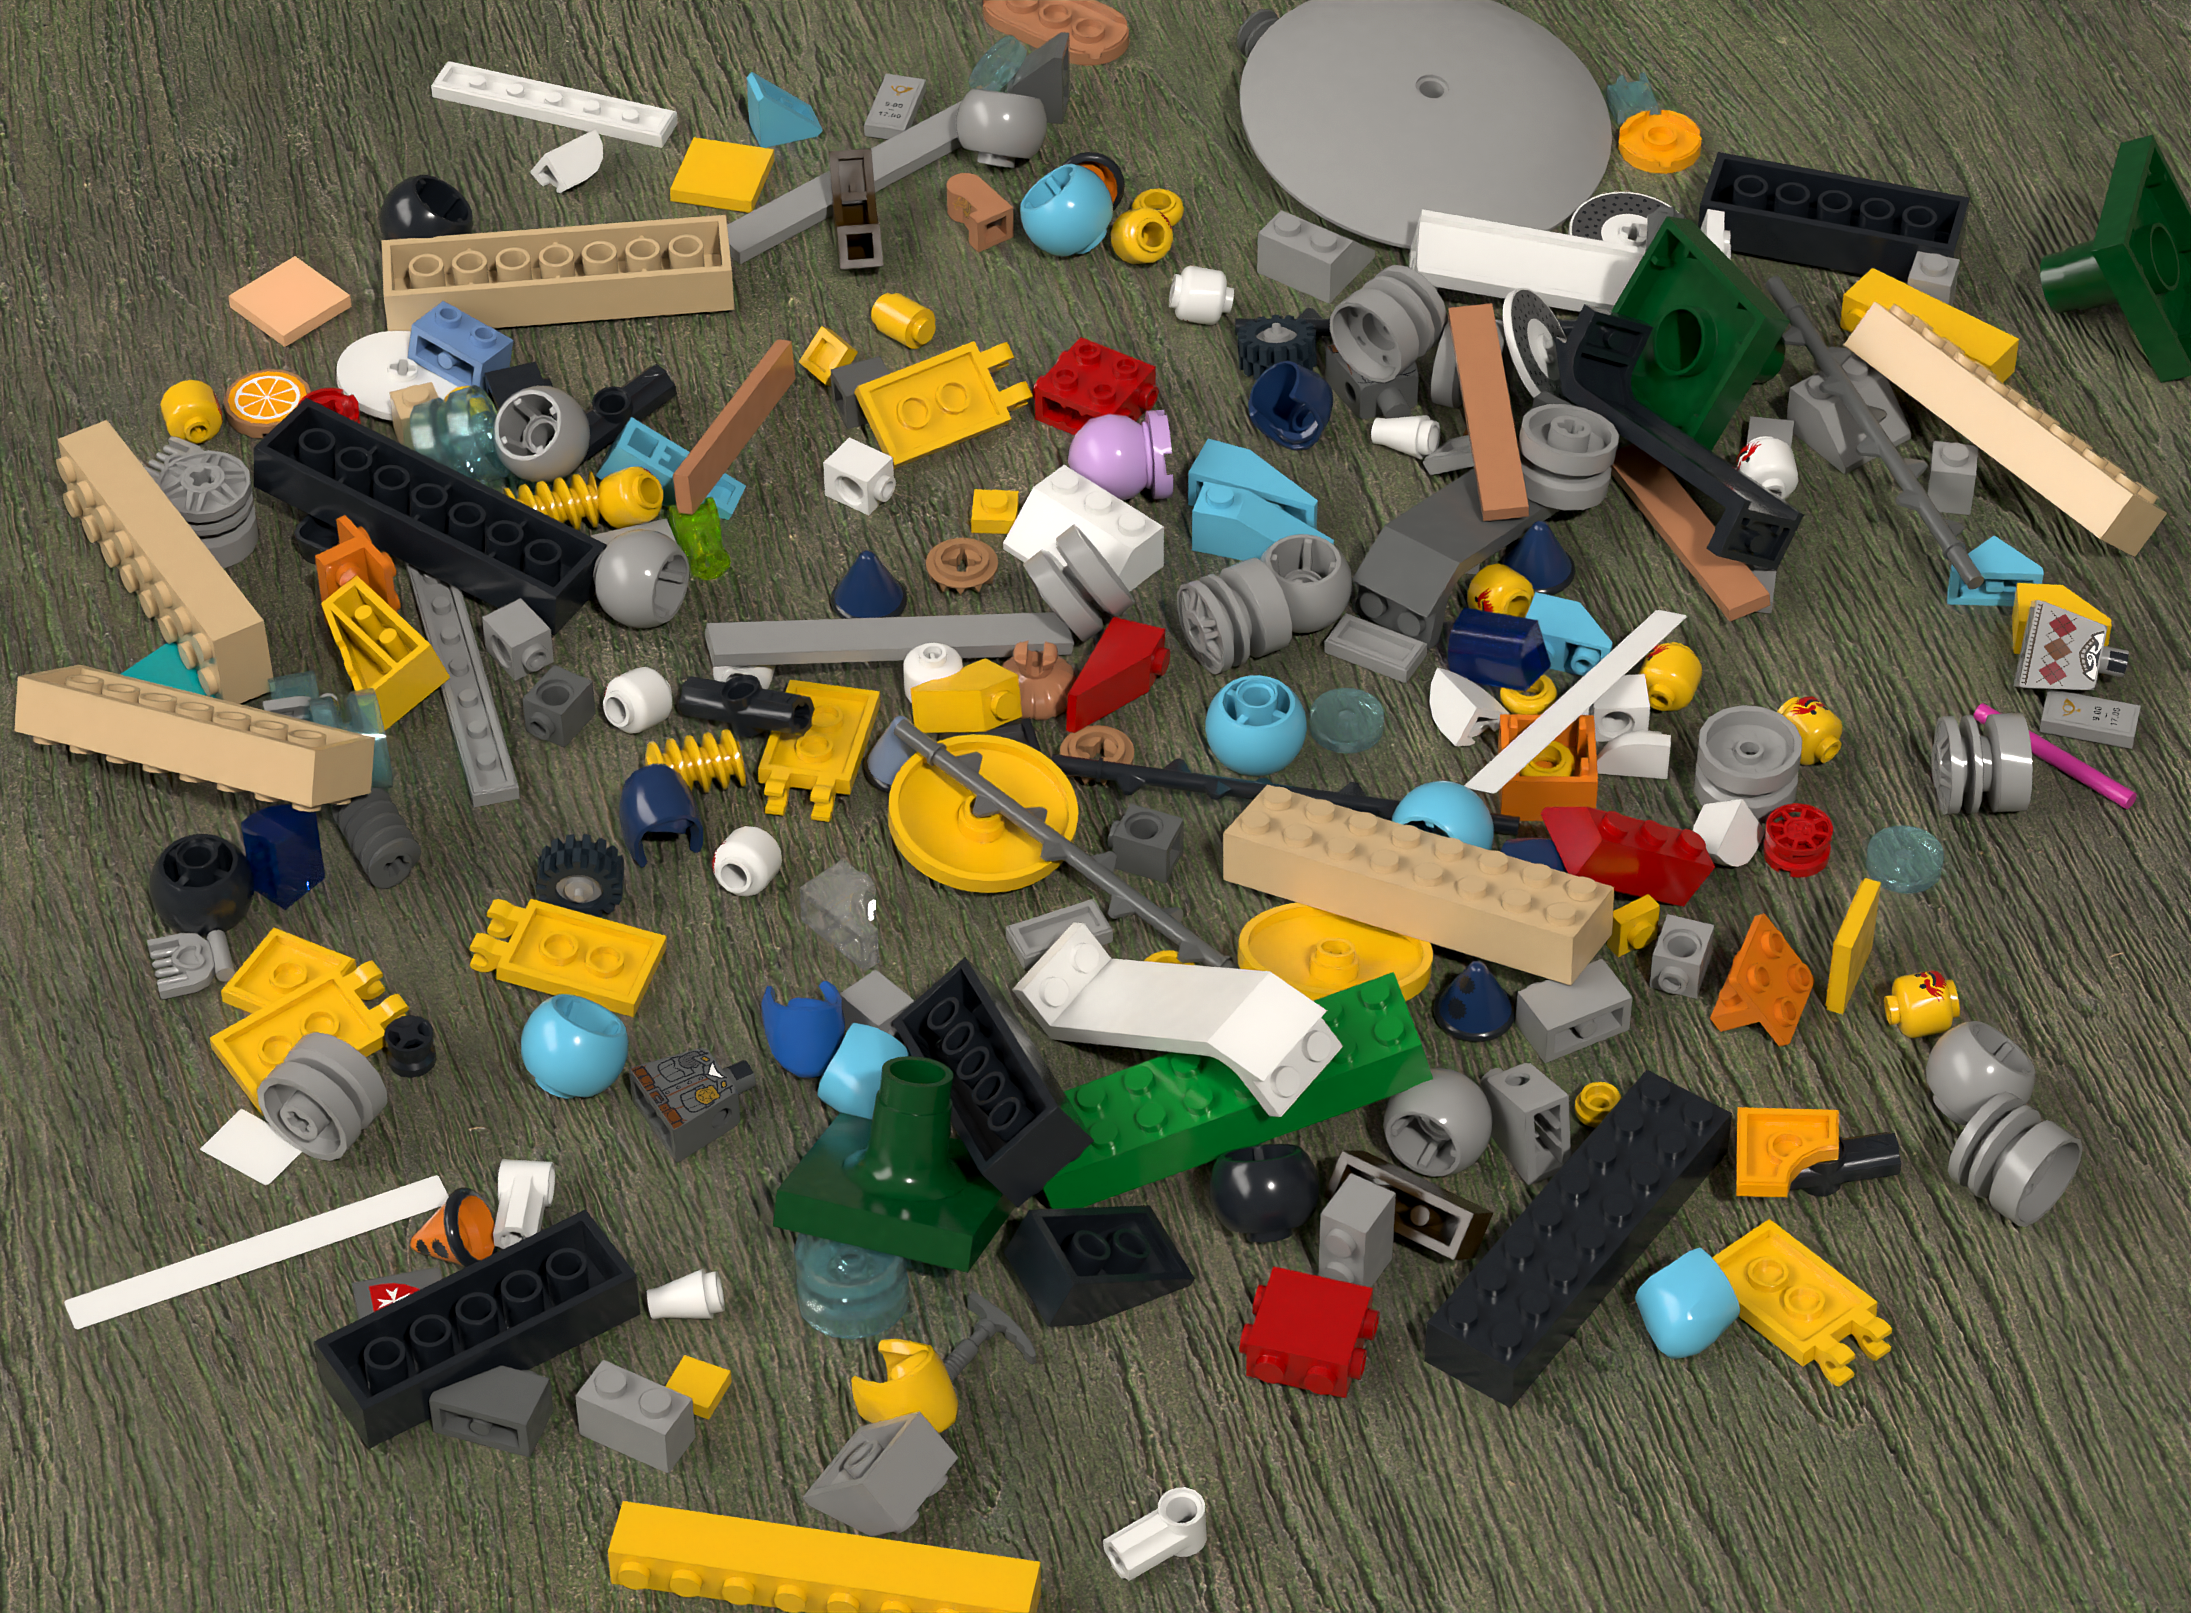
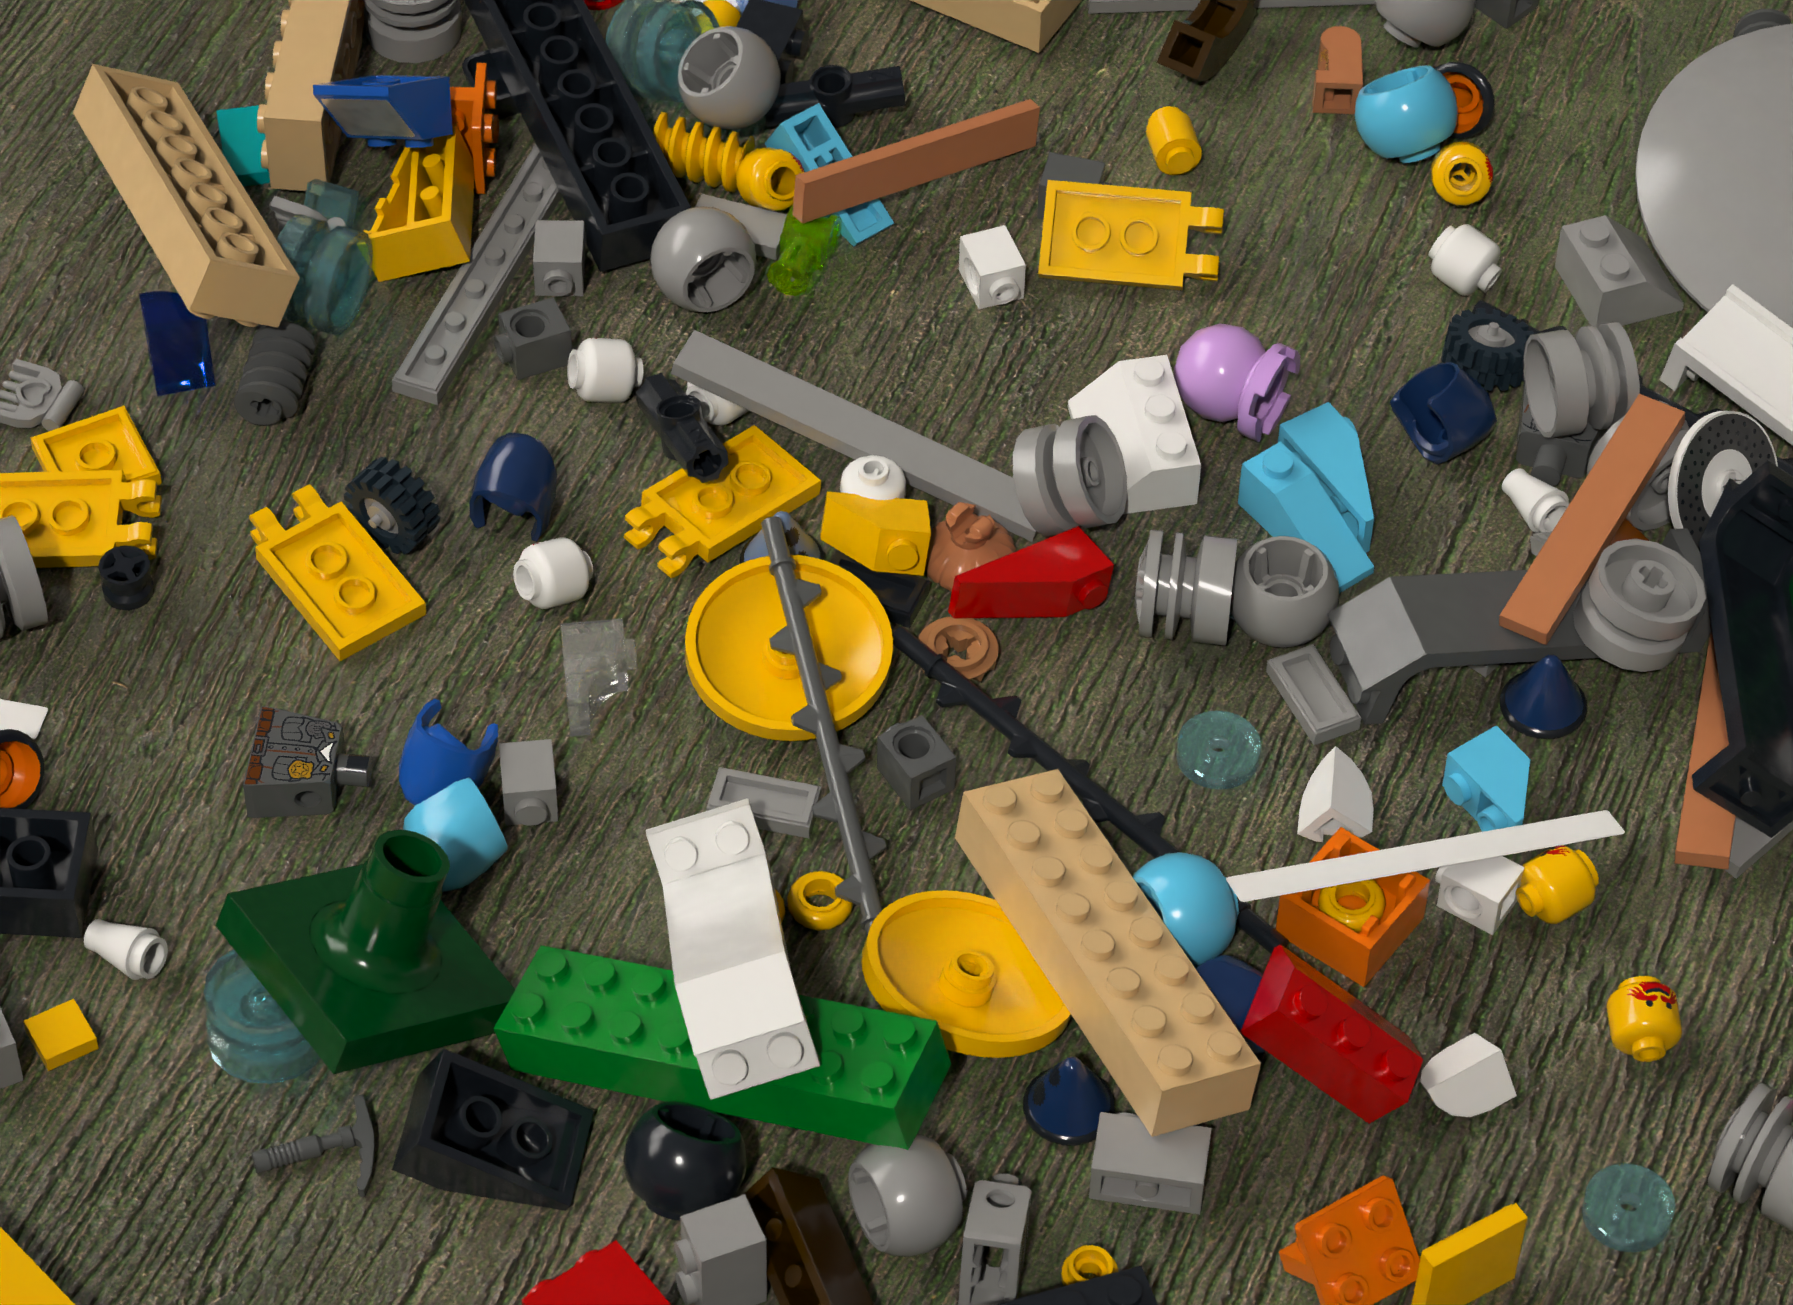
camera: 35 degrees right, 5 degrees up
(201, 884) = (93, 334): black wheel -> none
(306, 583) = (390, 108): none -> blue slope
(522, 1197) = (86, 765): white piece -> none
(574, 1046) = (236, 657): medium azure wheel -> none
(702, 762) = (594, 461): yellow piece -> none
(826, 353) = (1074, 135): yellow plate -> none
(868, 591) = (901, 384): dark blue hat -> none
(883, 1475) = (122, 1220): light grey slope -> none
(914, 1384) = (210, 1159): yellow piece -> none
(946, 556) = (1004, 387): medium nougat gear -> none
(994, 511) = (1084, 363): yellow plate -> none
(1002, 1089) = (521, 908): black brick -> none
(1093, 383) = (1282, 298): red brick -> none
(1162, 199) = (1516, 144): yellow piece -> none
(1255, 725) = (1115, 706): medium azure wheel -> none
(1497, 649) = (1407, 762): clear blue brick -> none
(1500, 591) = (1469, 707): yellow head -> none
(1530, 705) = (1413, 806): yellow piece -> none
(1634, 925) = (1287, 1113): yellow plate -> none
(1636, 755) = (1459, 945): white brick -> none
(1681, 956) = (1307, 1153): light grey brick -> none
(1748, 757) = (1547, 1016): light grey wheel -> none
(1798, 842) = (1533, 1127): red wheel -> none

